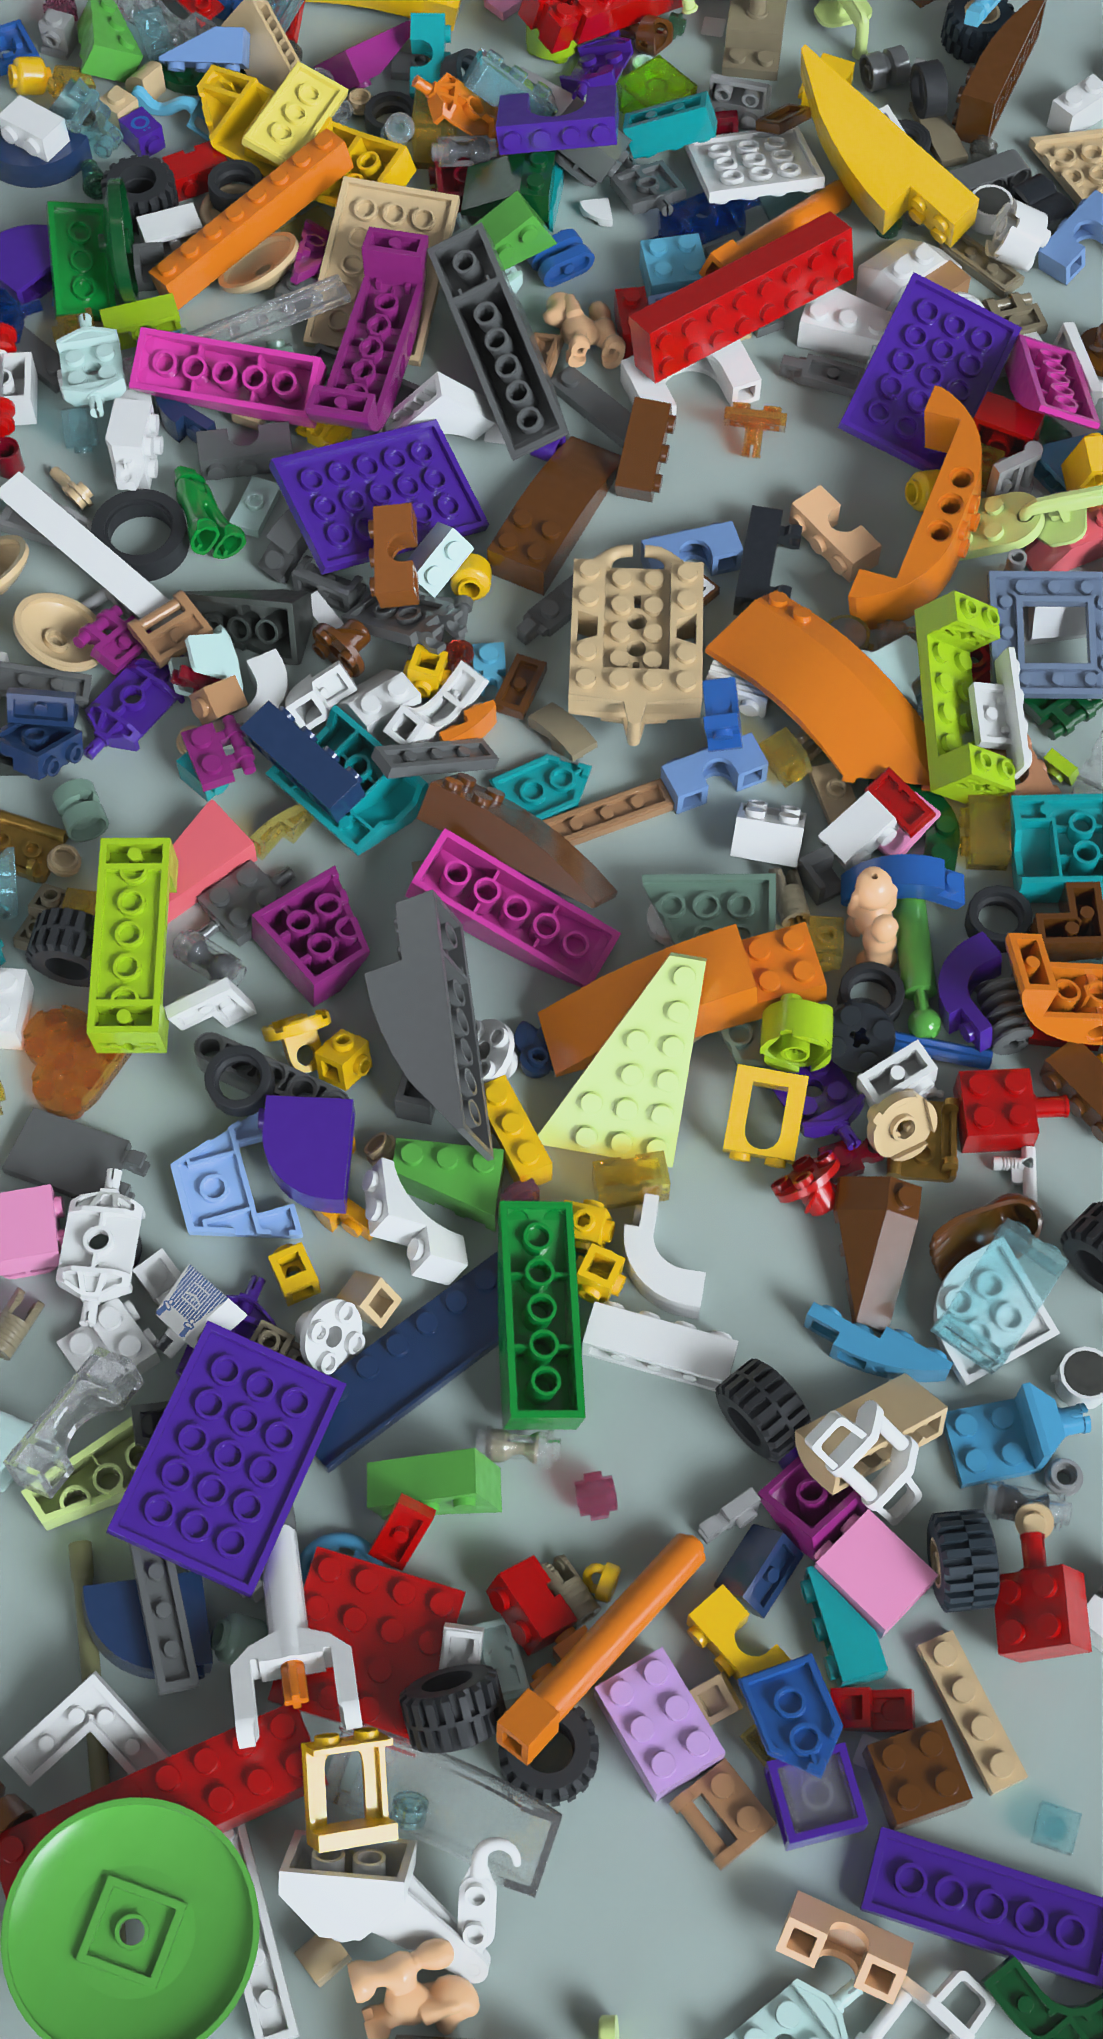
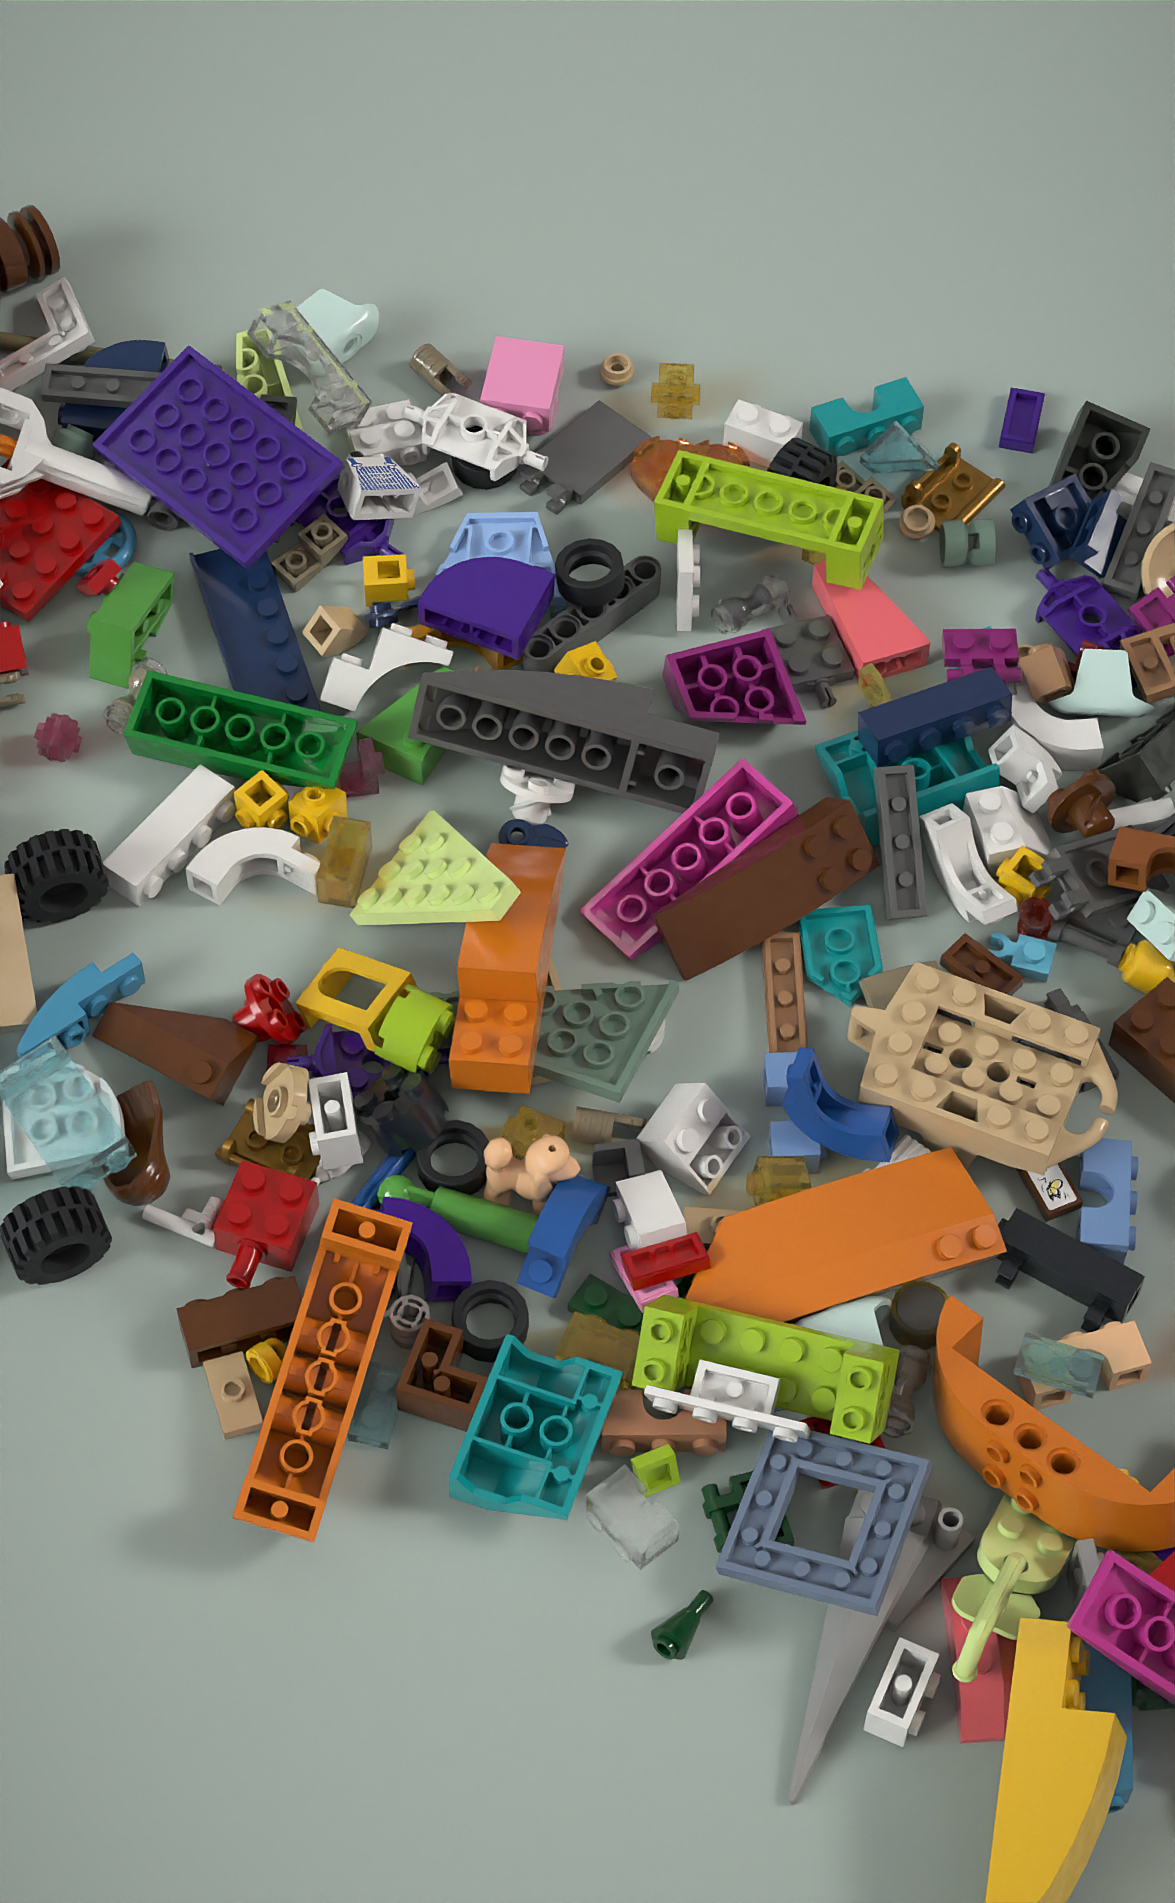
camera: 110 degrees right, 5 degrees down
(296, 1032) = (635, 644): yellow tile -> none
(330, 1335) = (307, 580): white plate -> none
(331, 1246) = (384, 614): none -> dark blue plate
(477, 723) = (943, 905): orange slope -> none
(509, 1123) = (420, 783): yellow arch -> none
(855, 533) = (1058, 1365): none -> clear light blue plate

